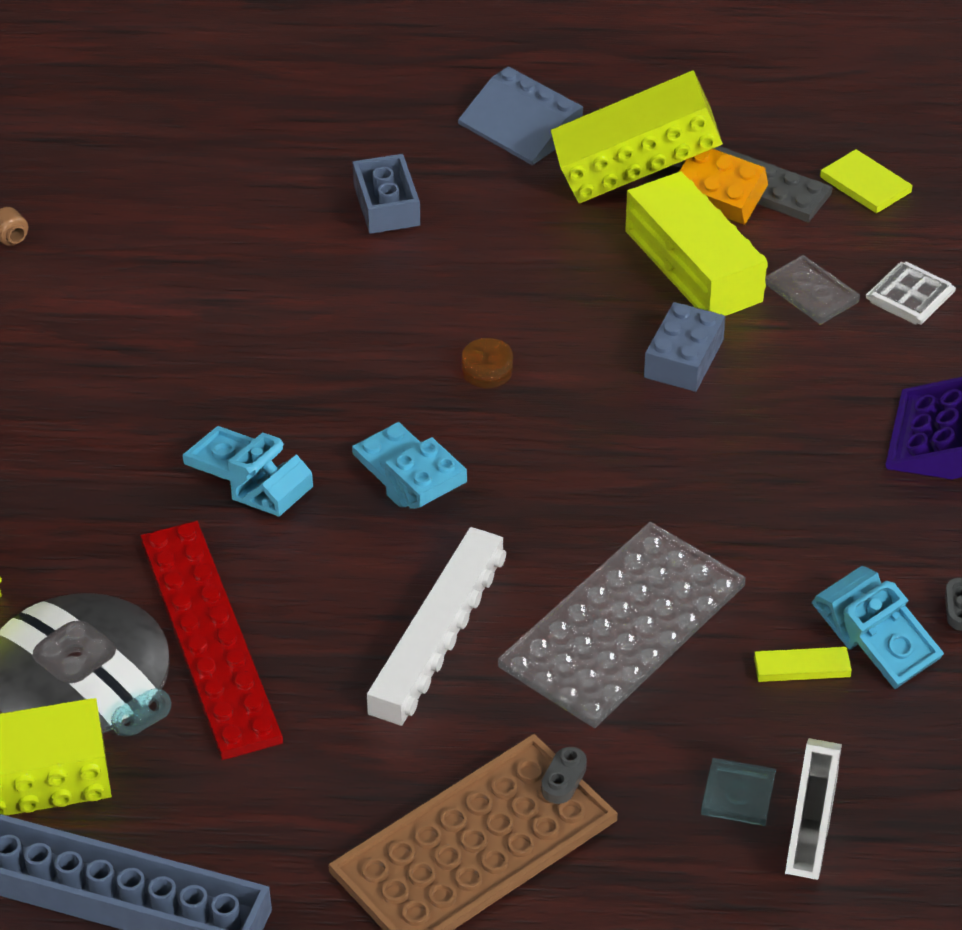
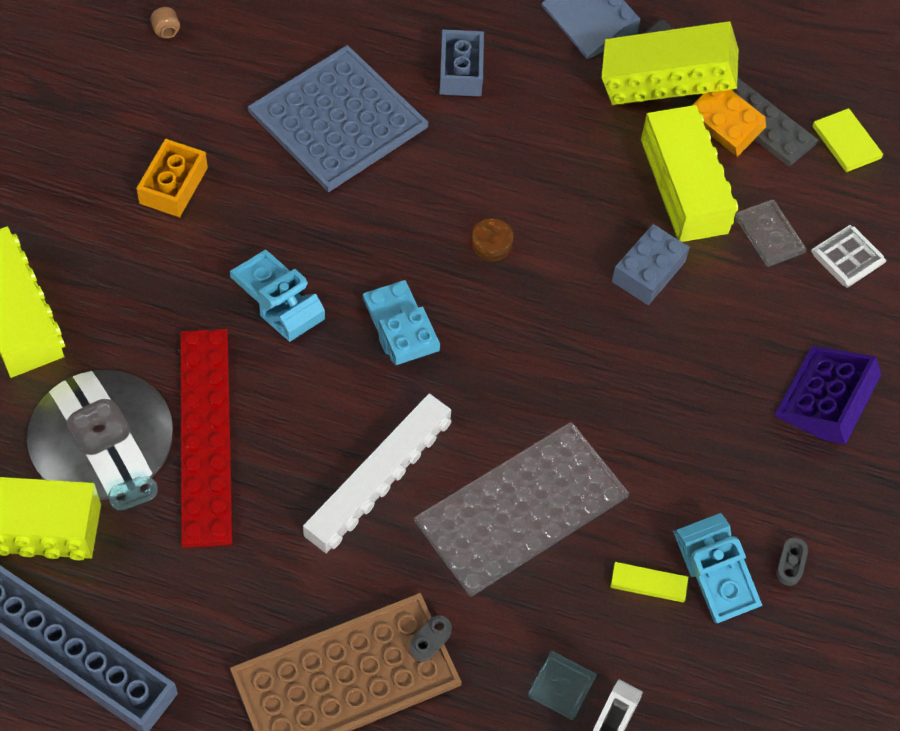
camera: 10 degrees right, 15 degrees up
(75, 379) = (172, 178): none -> light orange brick
(255, 280) = (338, 118): none -> sand blue plate

